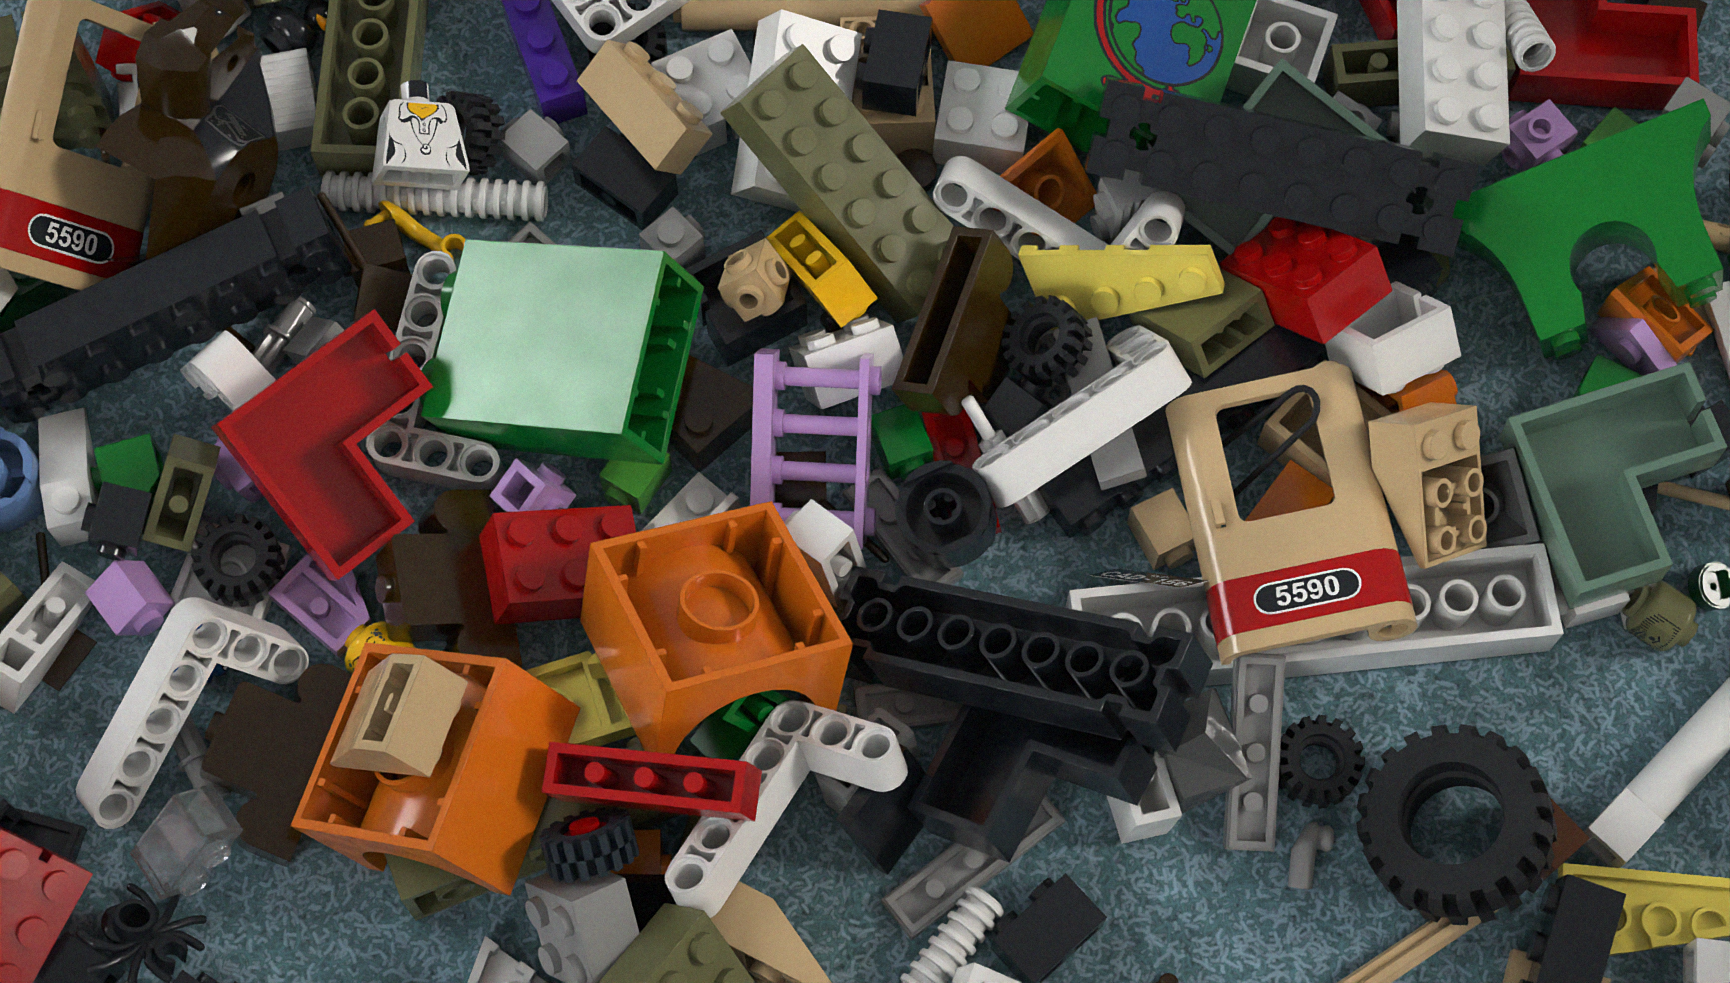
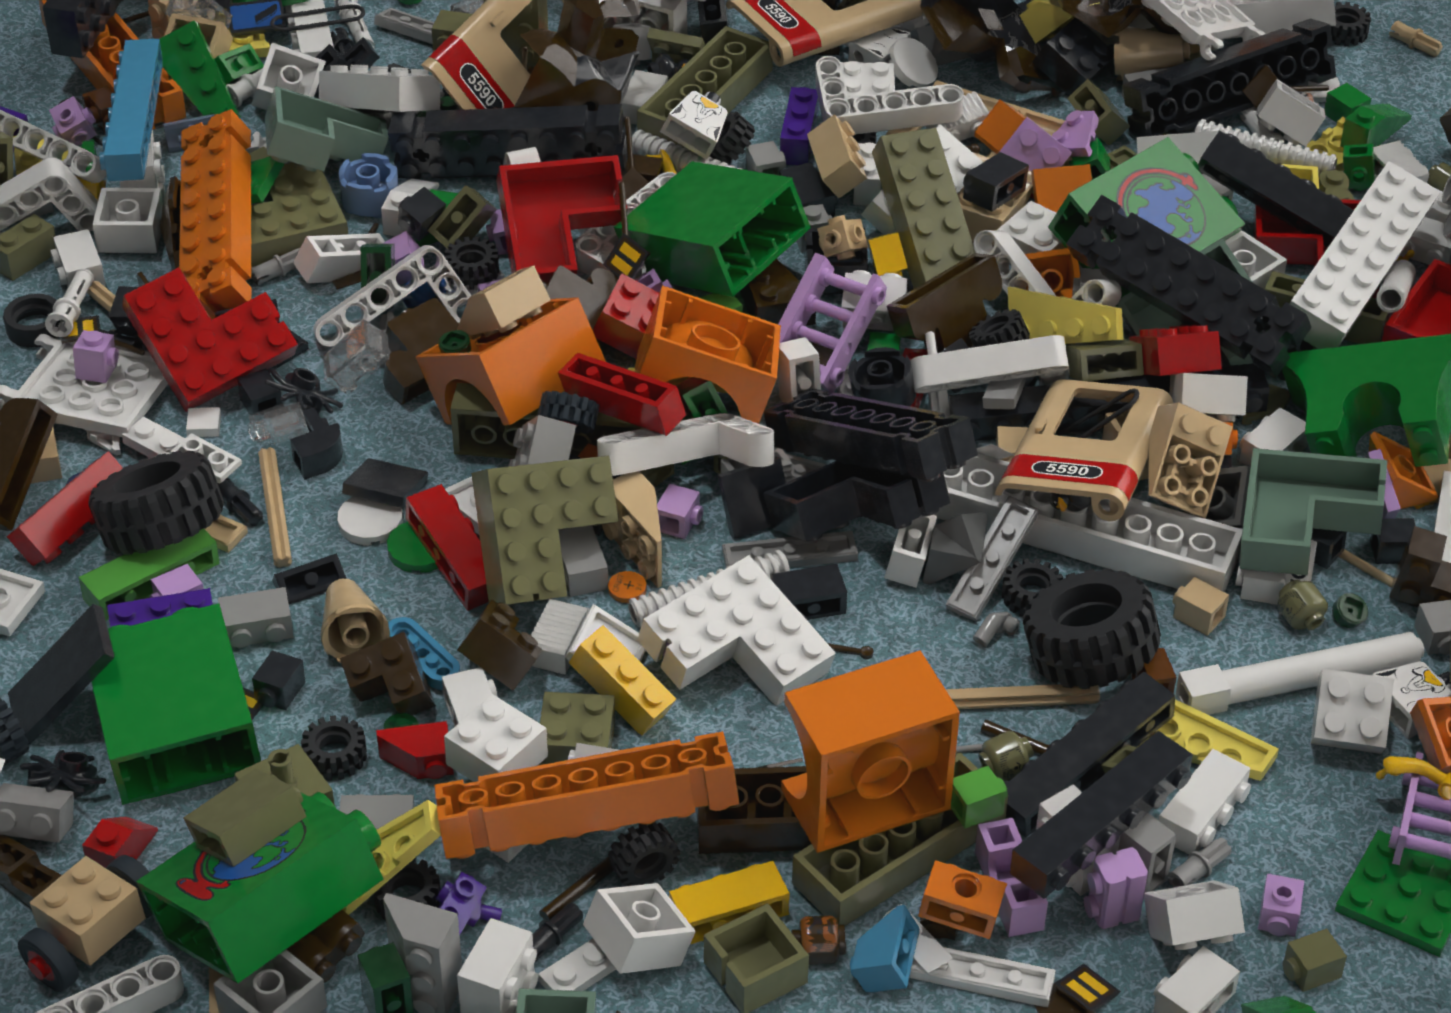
camera: 30 degrees right, 25 degrees down
(112, 651) = (374, 262): none -> dark green brick
(347, 793) = (455, 342): none -> dark green tile
(466, 460) = (627, 254): none -> piece
(794, 873) = (679, 510): none -> lavender brick
(1483, 337) = (1275, 432): none -> white brick
(1538, 681) = (1200, 605): none -> tan brick

